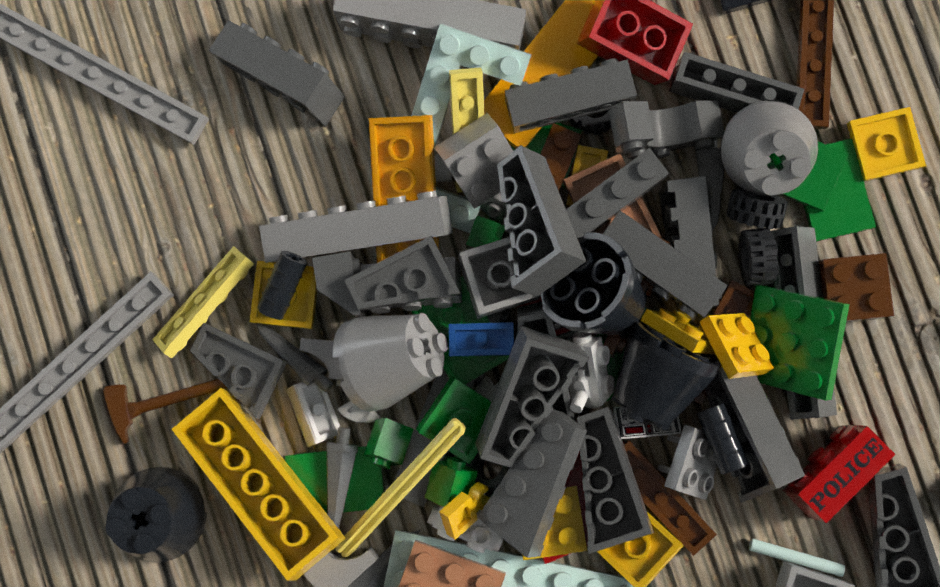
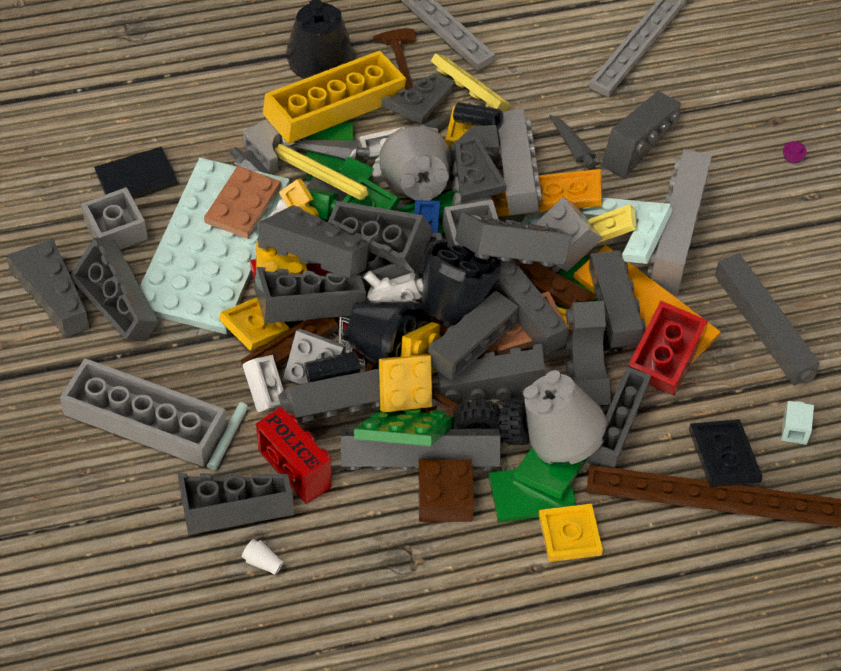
camera: 85 degrees right, 30 degrees down
(301, 155) = (578, 148): none -> dark grey bar
(726, 521) = (263, 382): none -> white slope

